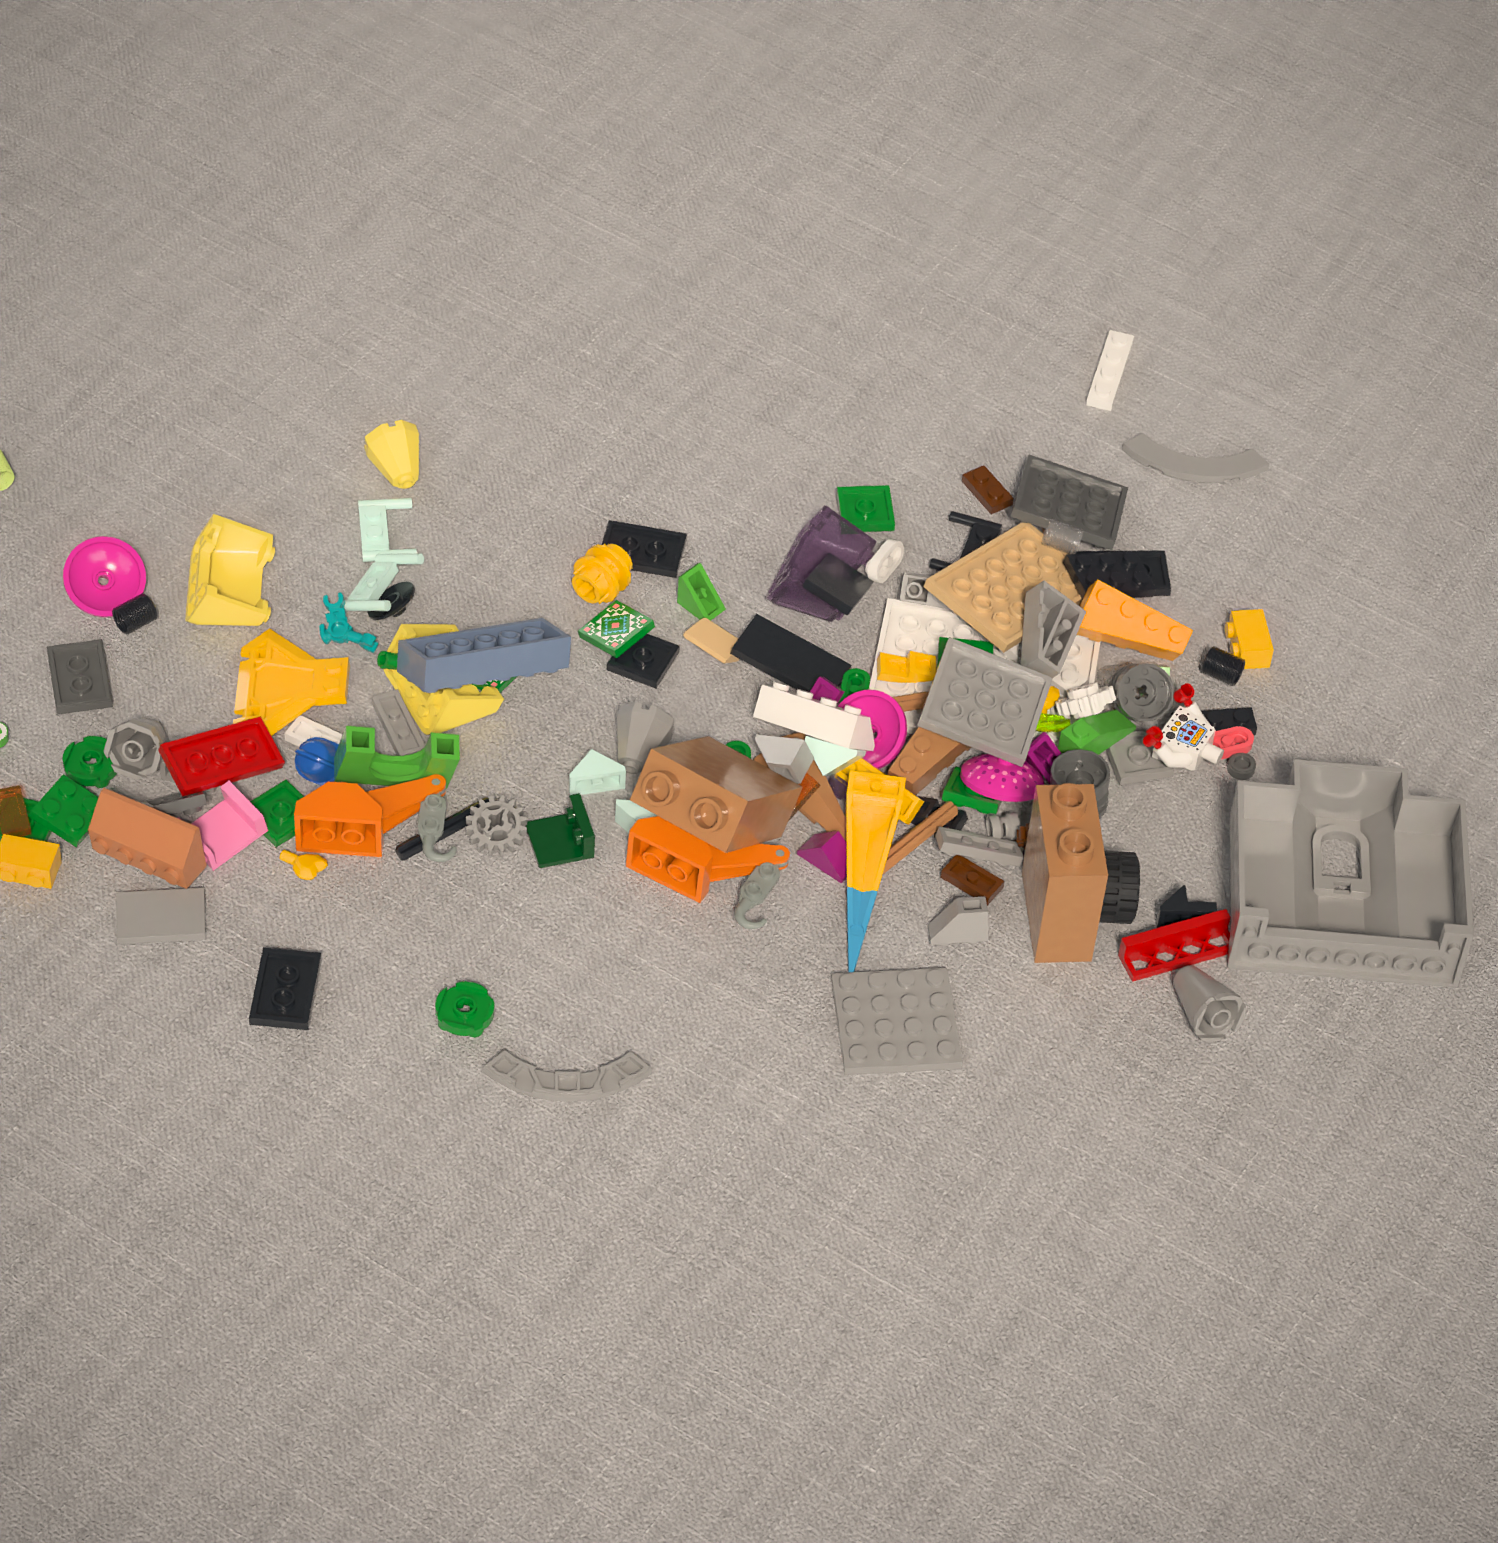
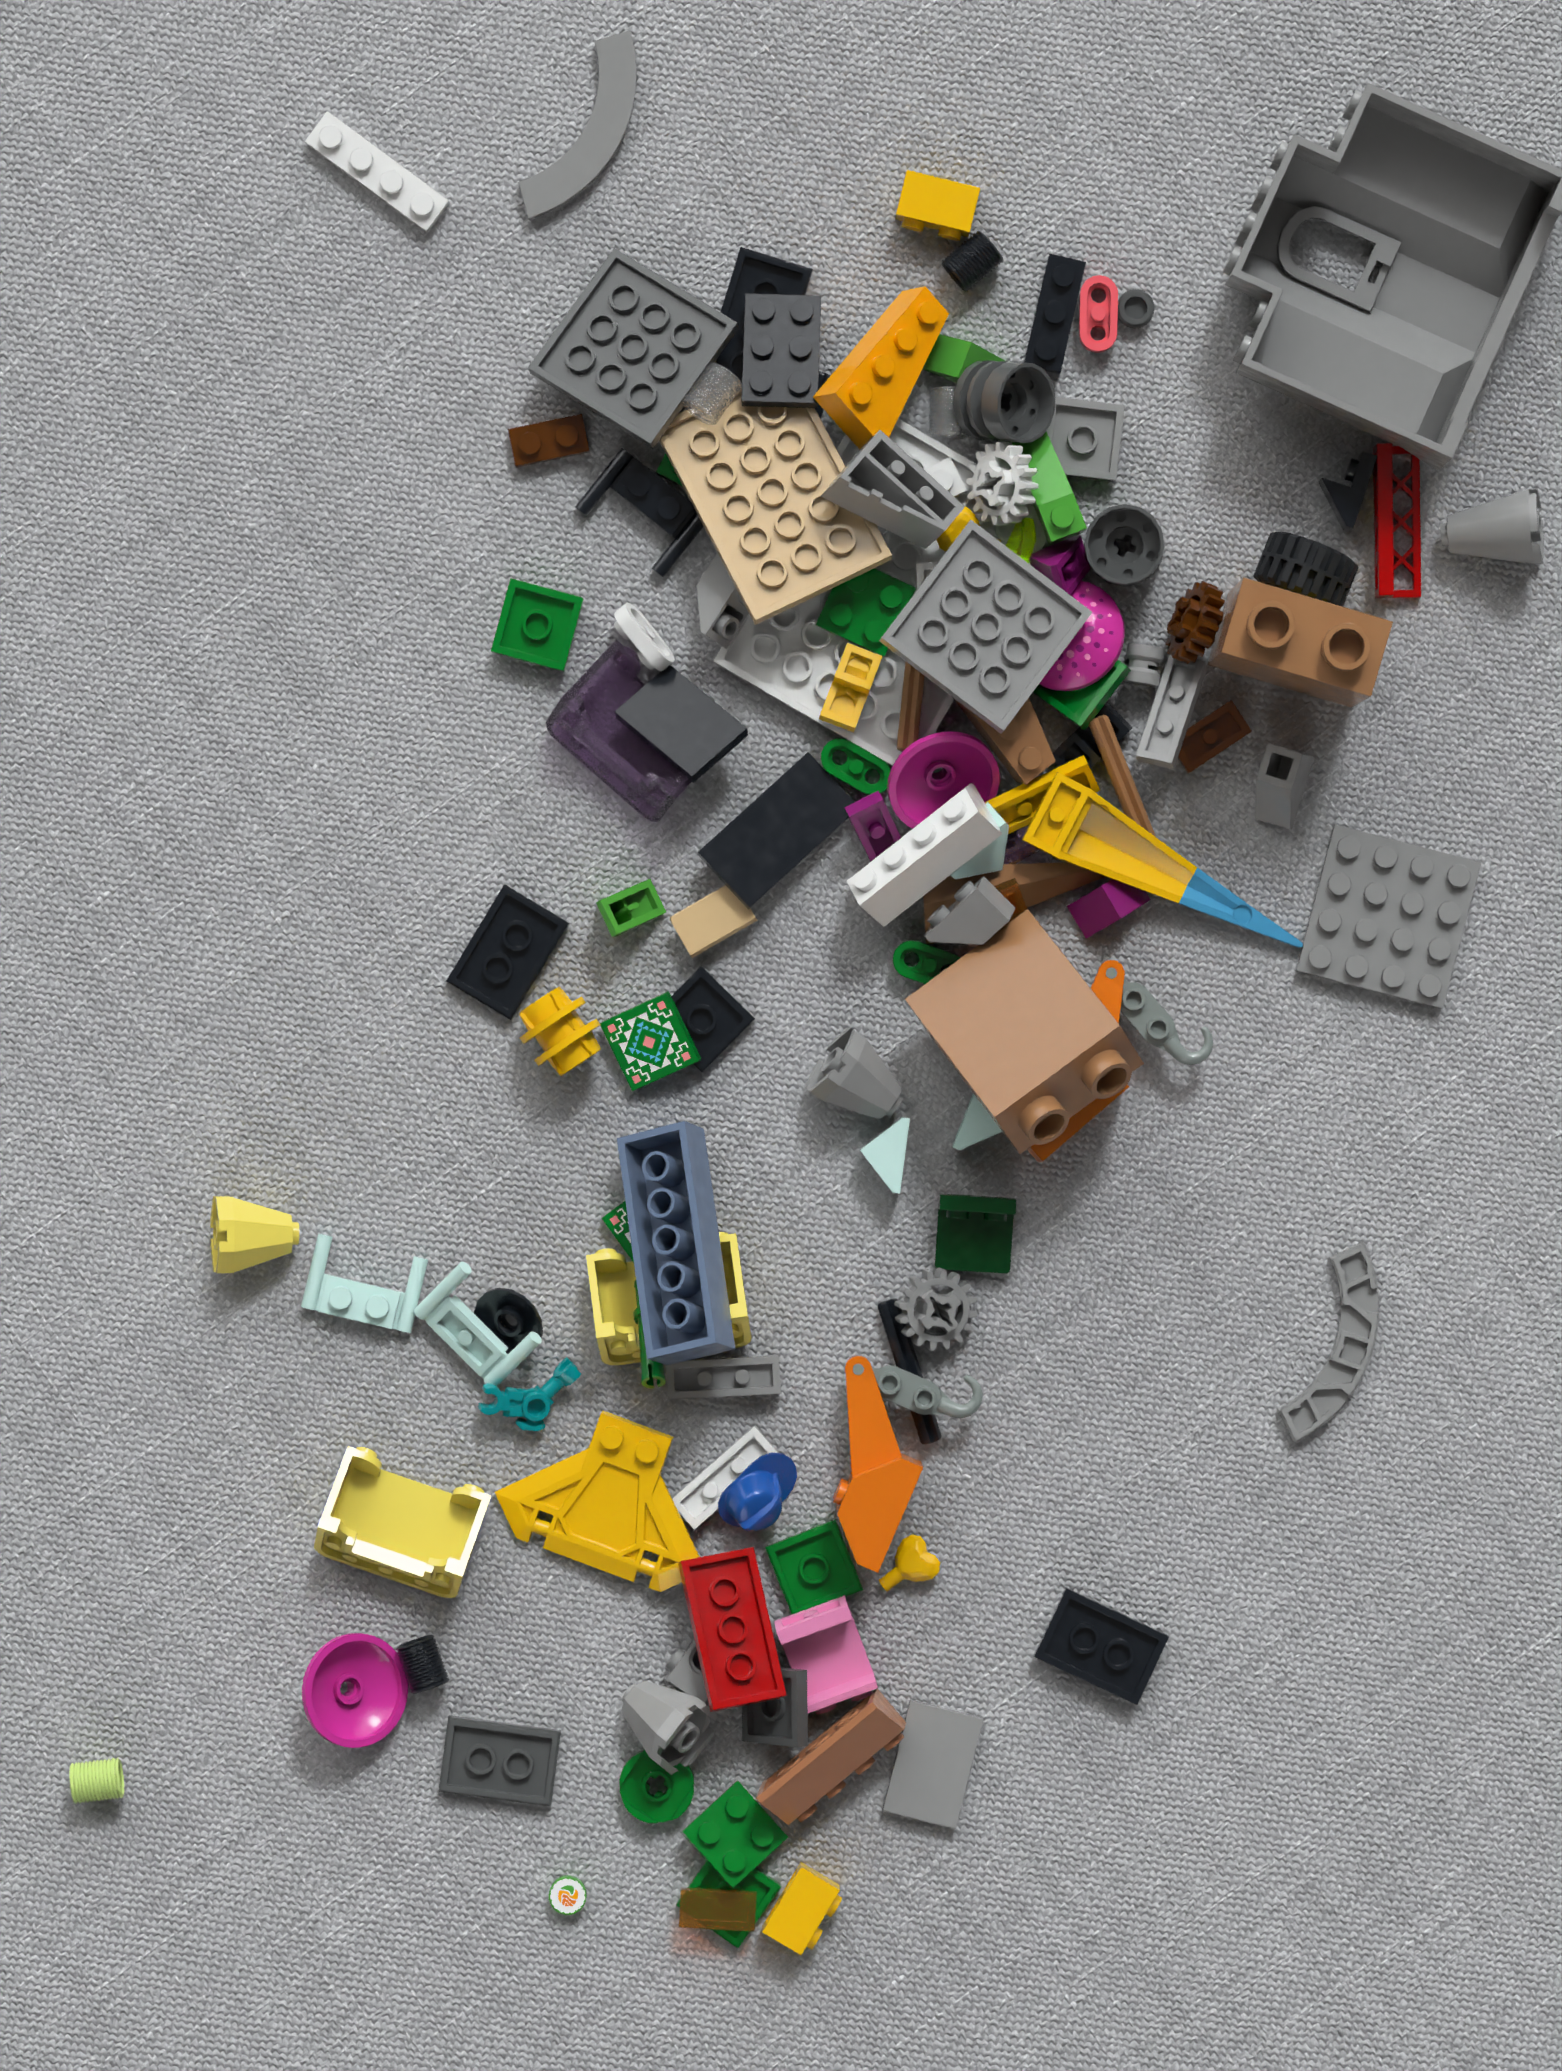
camera: 65 degrees left, 40 degrees up
(361, 764) = (821, 1365): bright green arch -> none
(464, 1023) = (1206, 1459): green plate -> none
(1185, 737) = (1096, 375): white torso -> none

